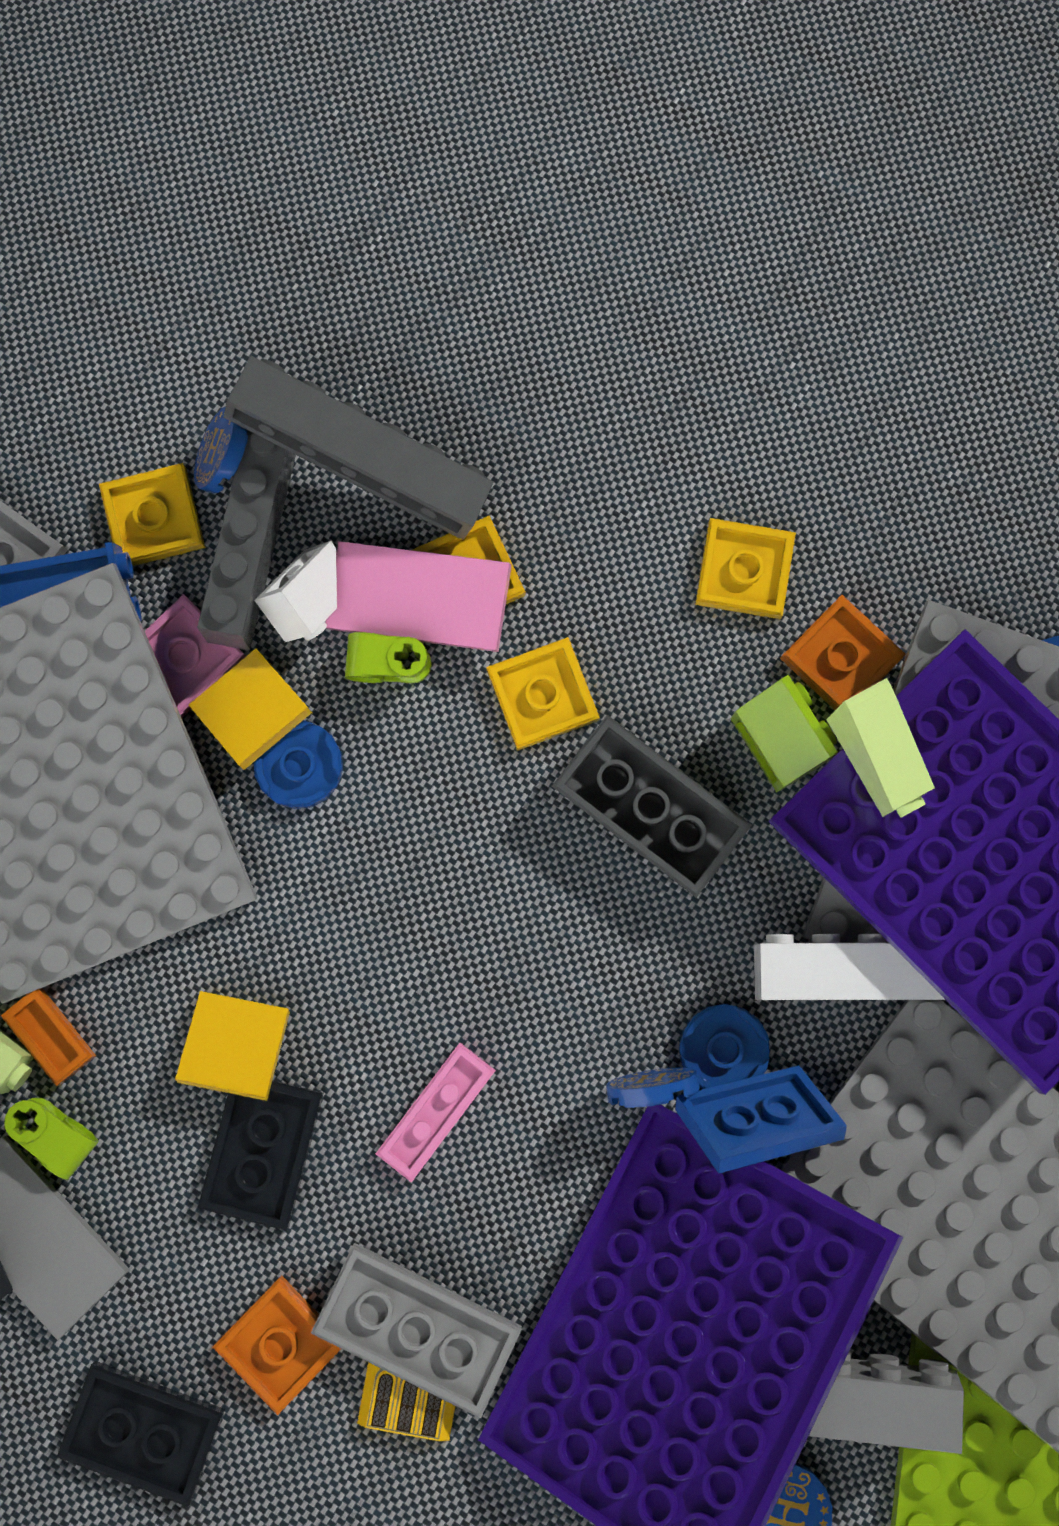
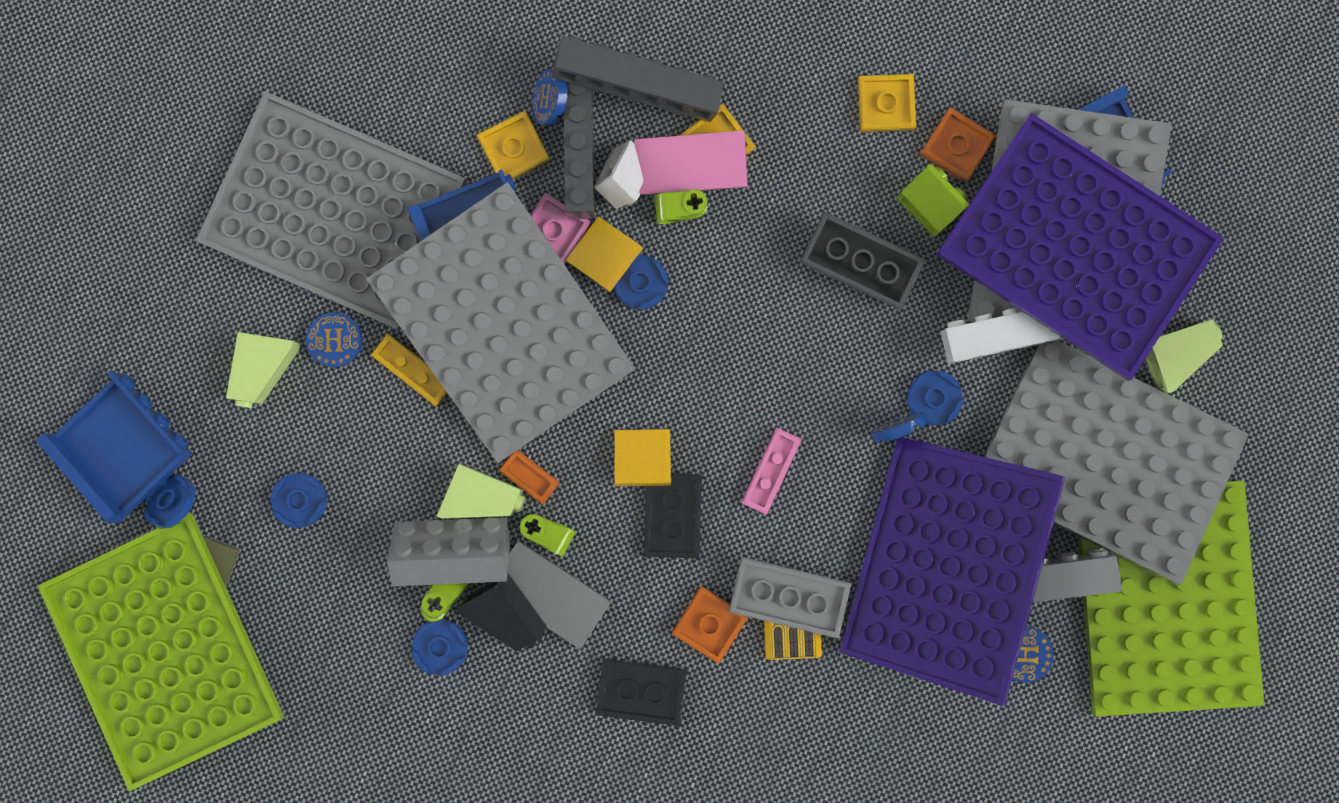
camera: 10 degrees left, 5 degrees up
(542, 693) = (779, 207): yellow tile -> none
(760, 1118) = (966, 431): blue plate -> none
(882, 749) = (997, 196): yellowish green slope -> none

